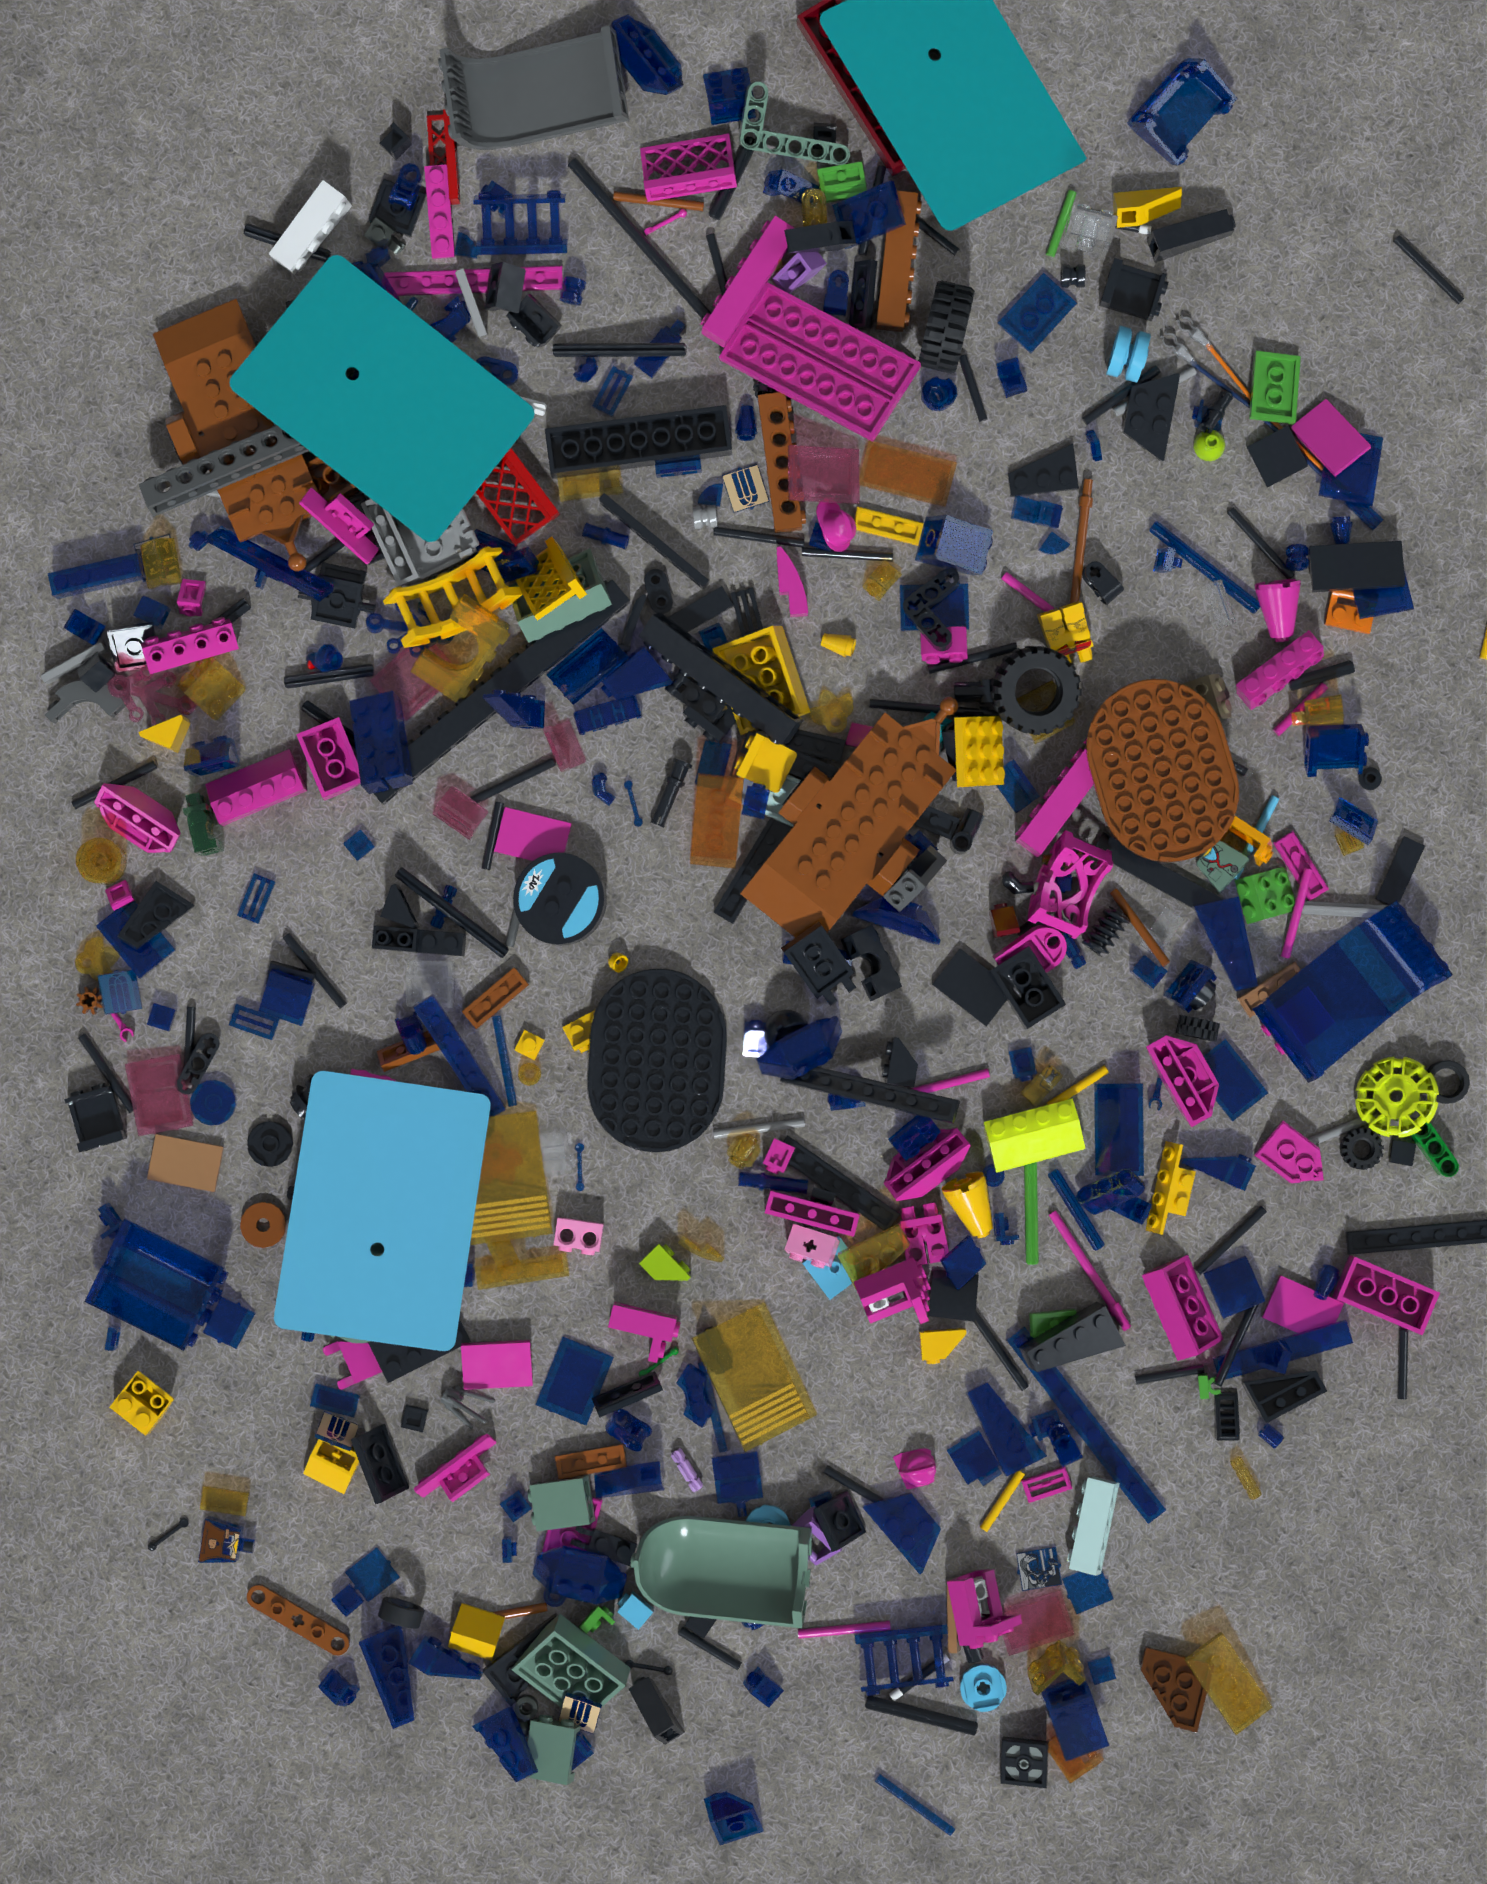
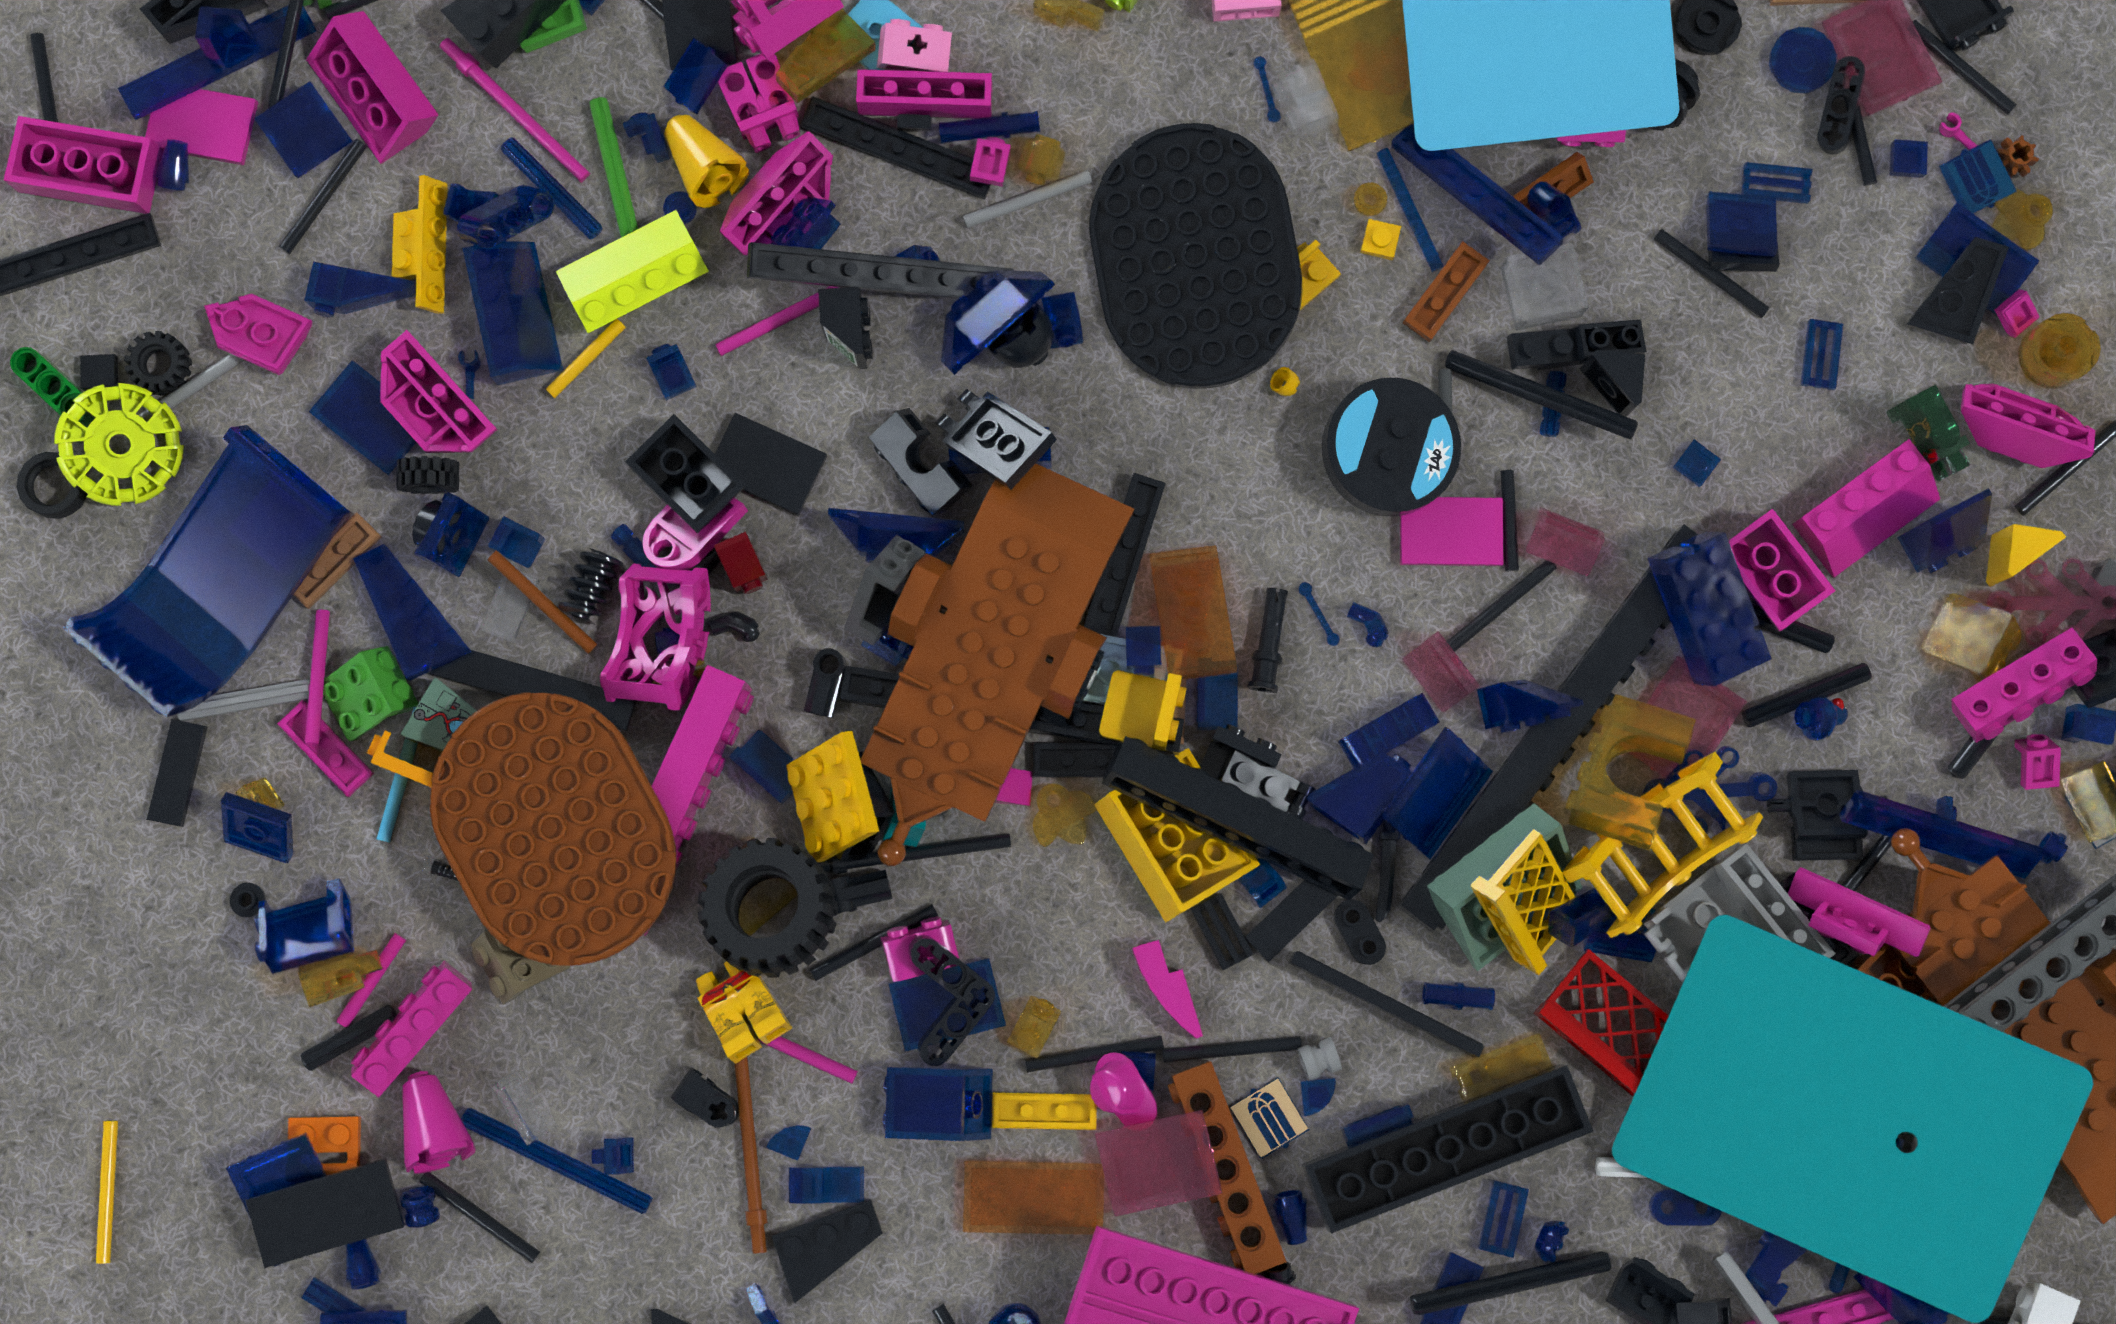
camera: 160 degrees right, 5 degrees down
(840, 644) = (1074, 915): yellow cone -> none
(1041, 1084) = (638, 344): clear yellow leg -> none

